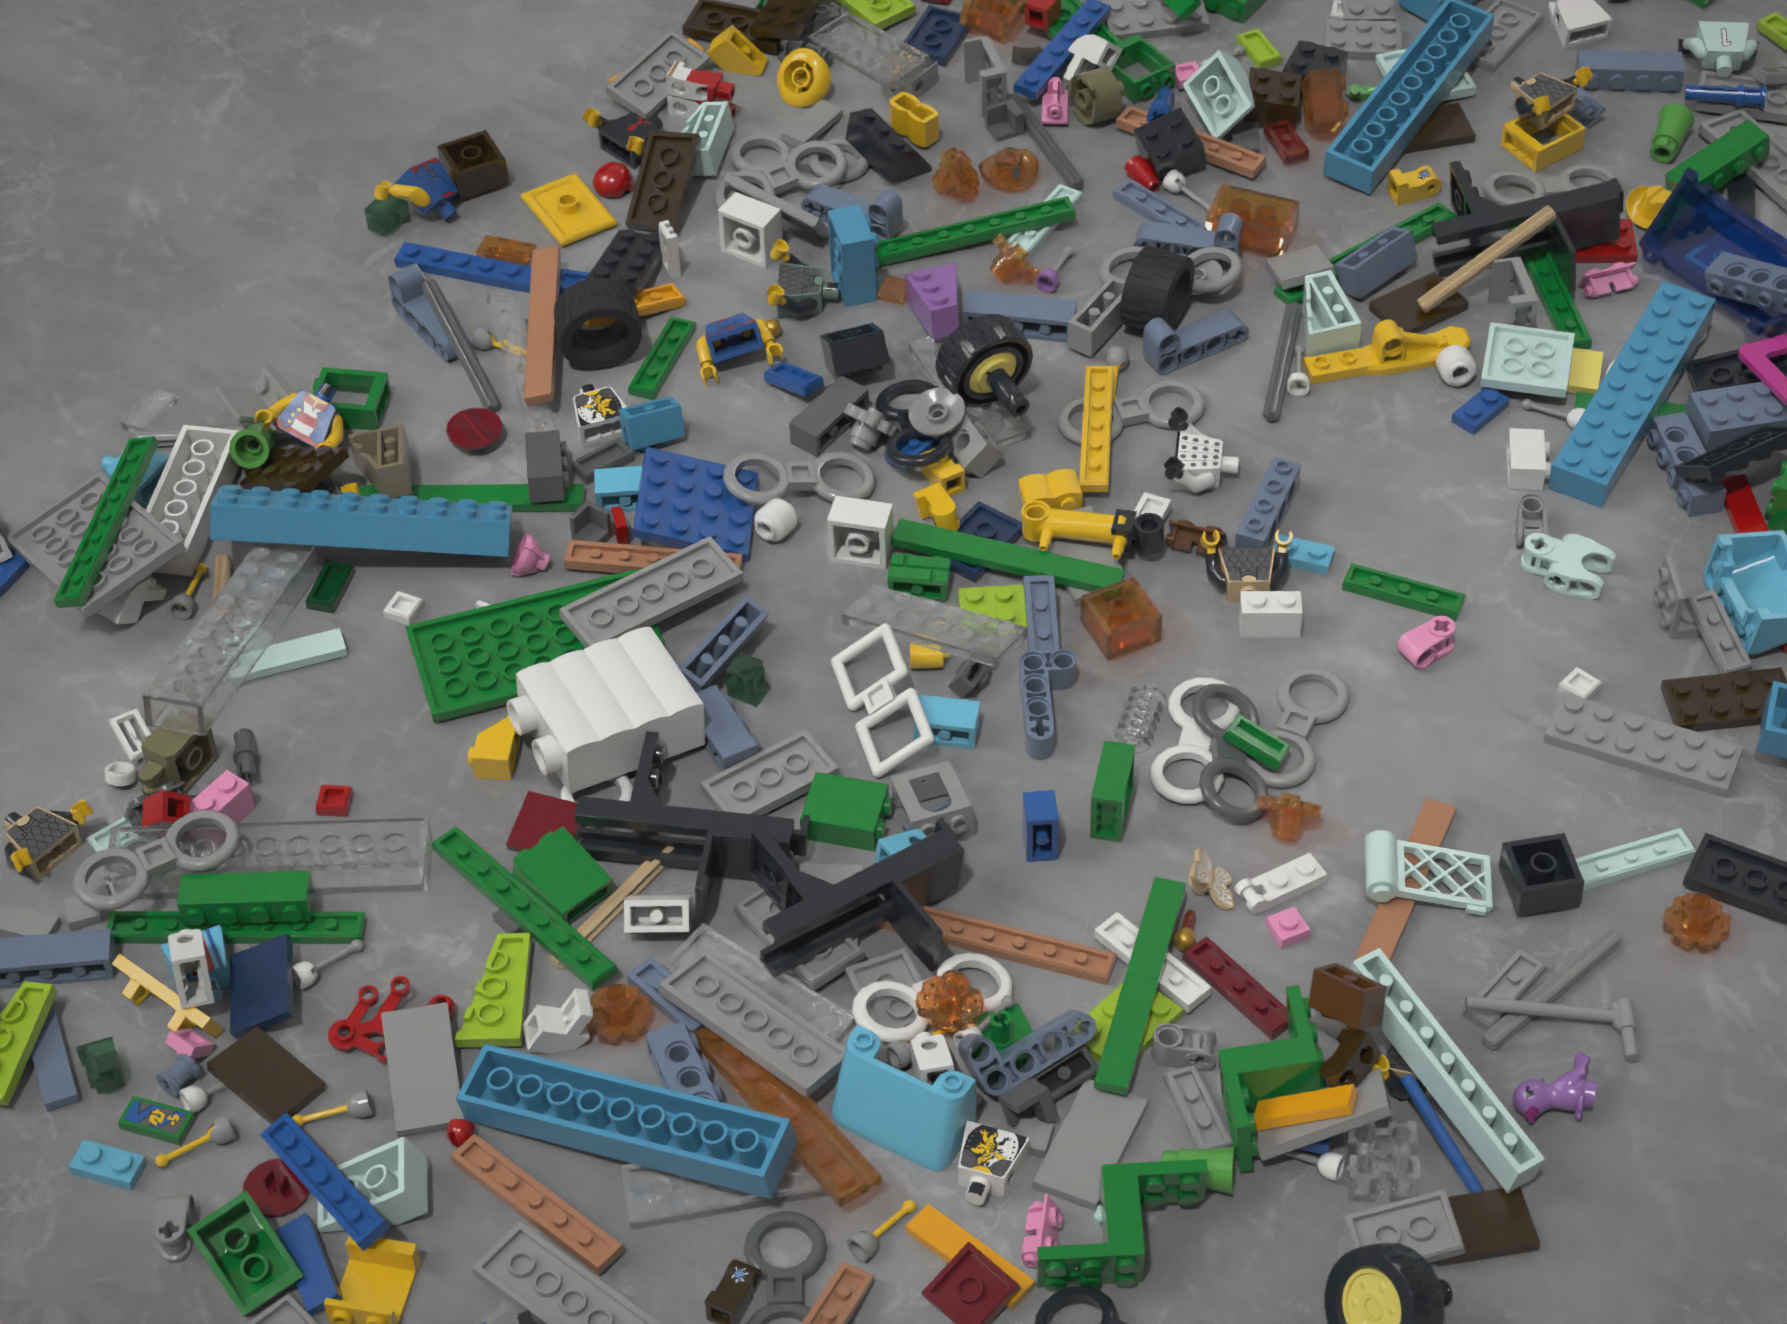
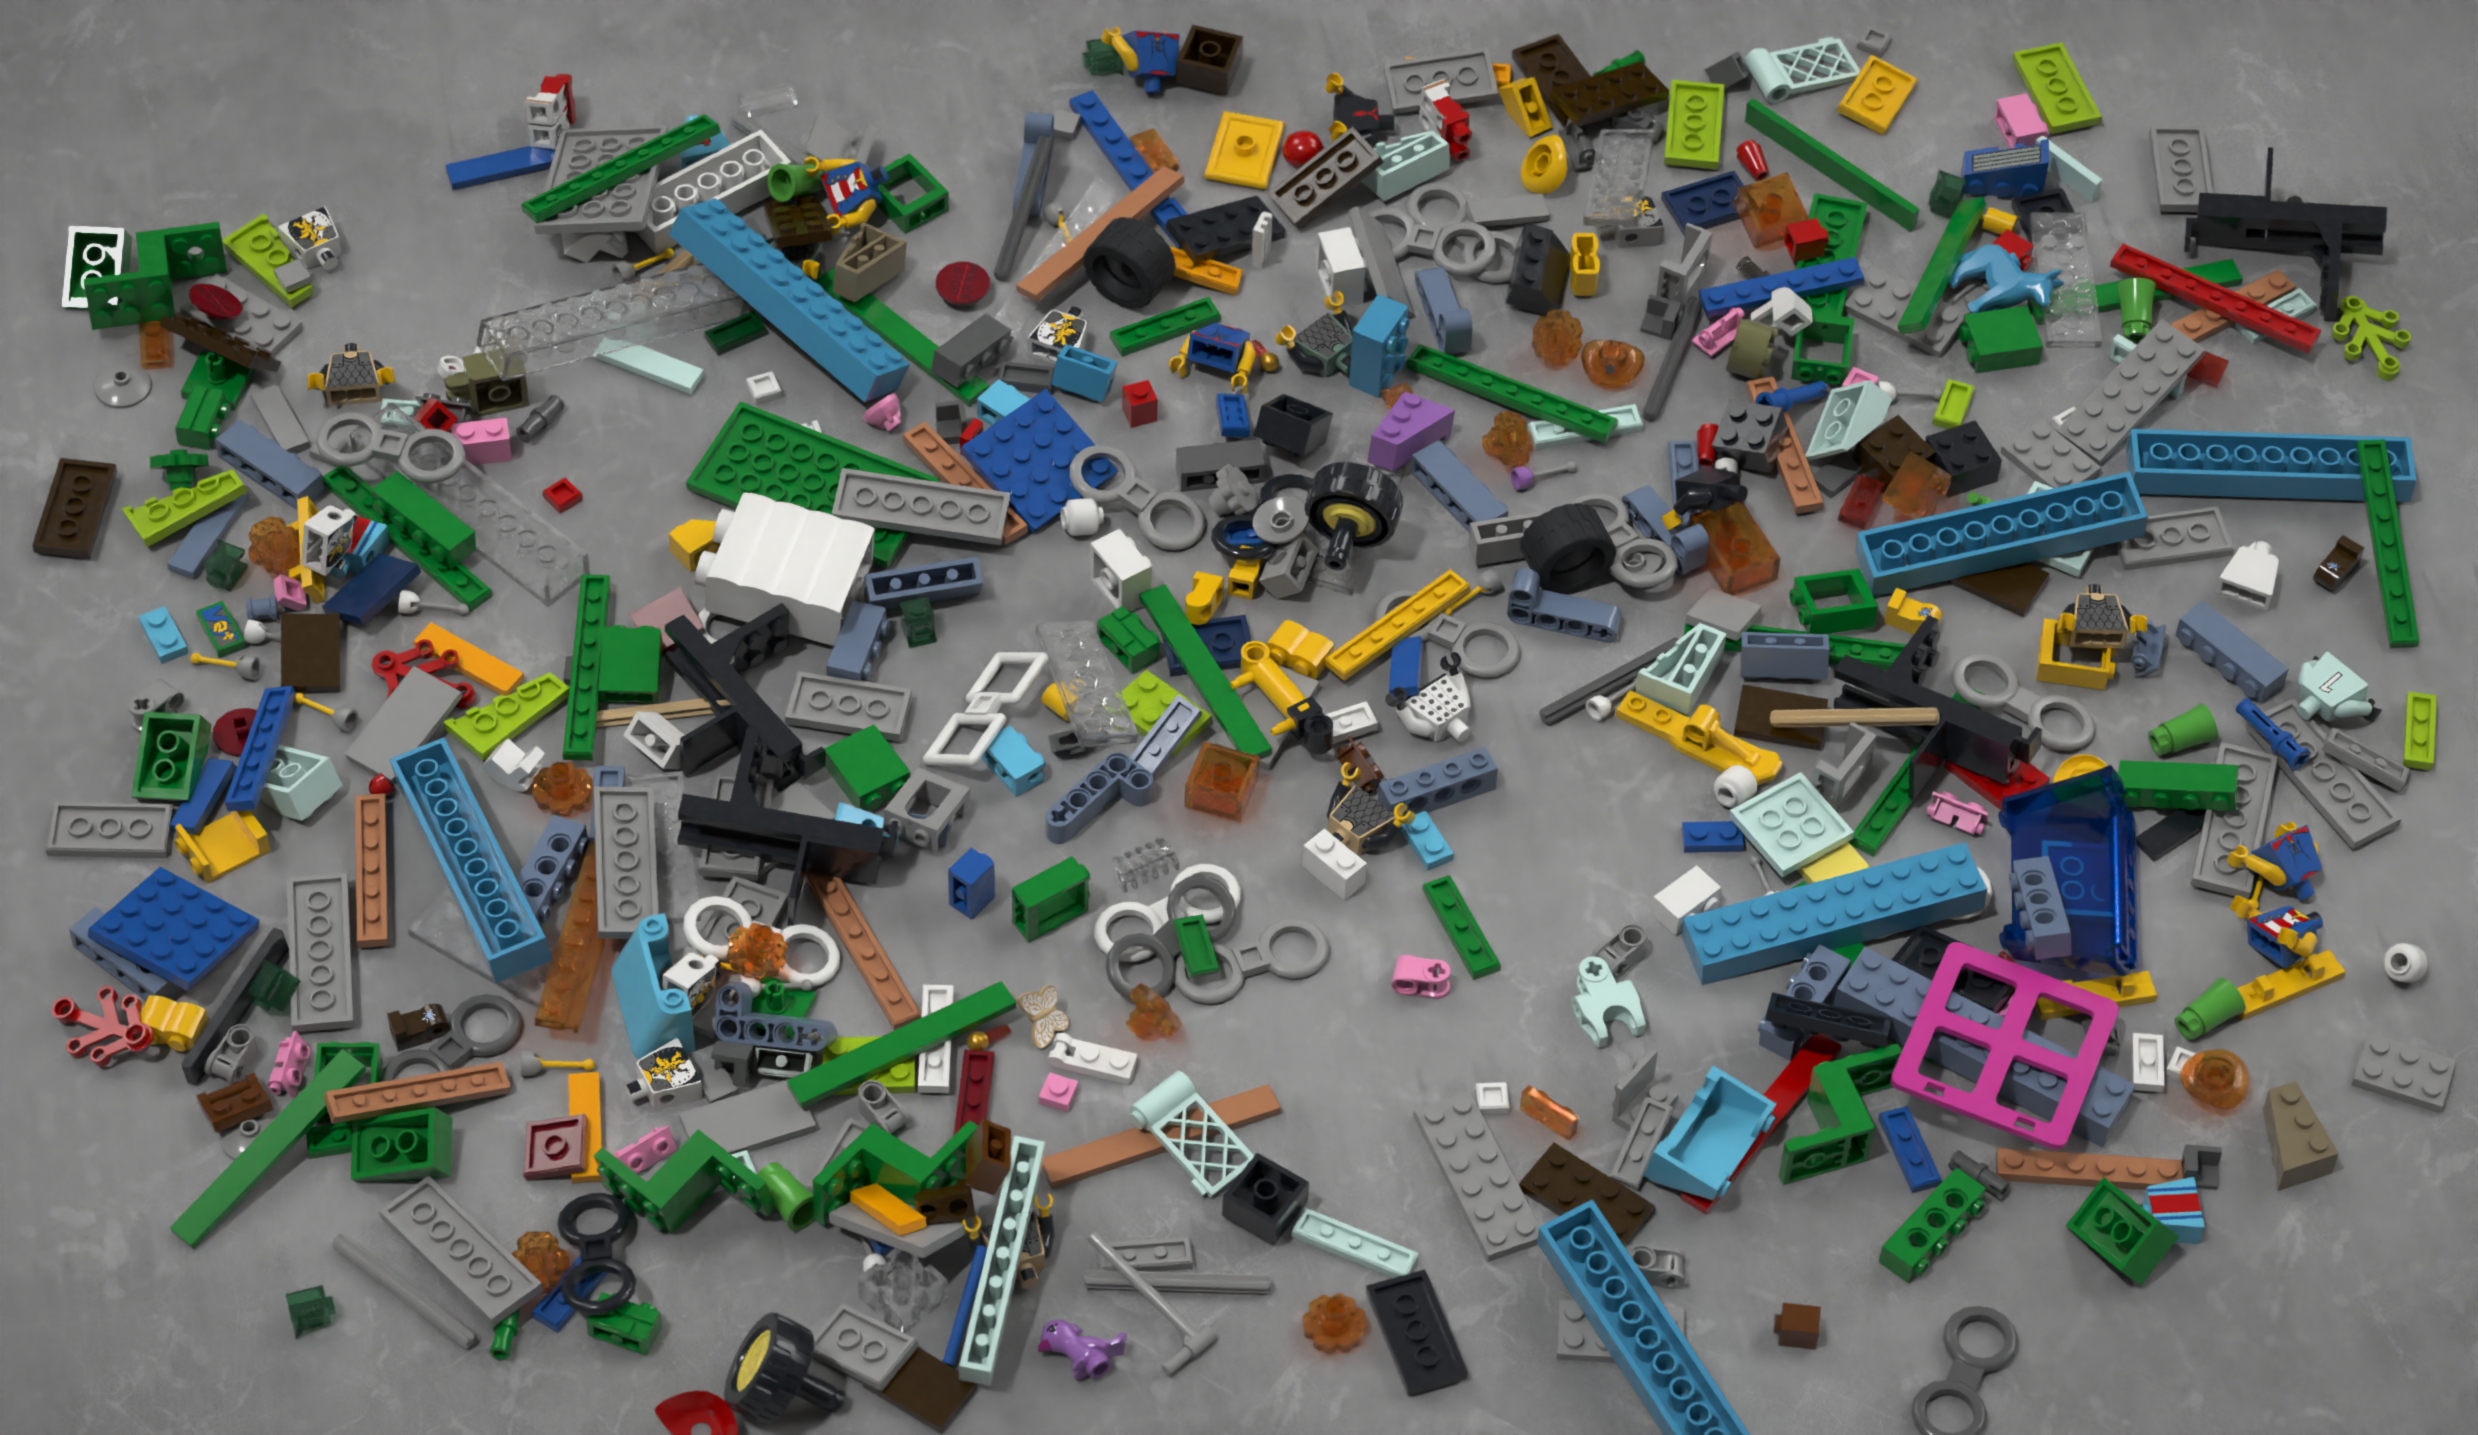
camera: 40 degrees right, 5 degrees up
(133, 1016) = (274, 545): none -> clear orange plant
(424, 977) = (473, 661): none -> light orange tile
(717, 416) = (1139, 403): none -> red brick
(1142, 448) = (1406, 665): none -> blue tile
(1203, 189) = (1705, 490): none -> black torso
(1364, 193) = (1834, 619): none -> green window
(1634, 663) = (1548, 1112): none -> clear orange plate

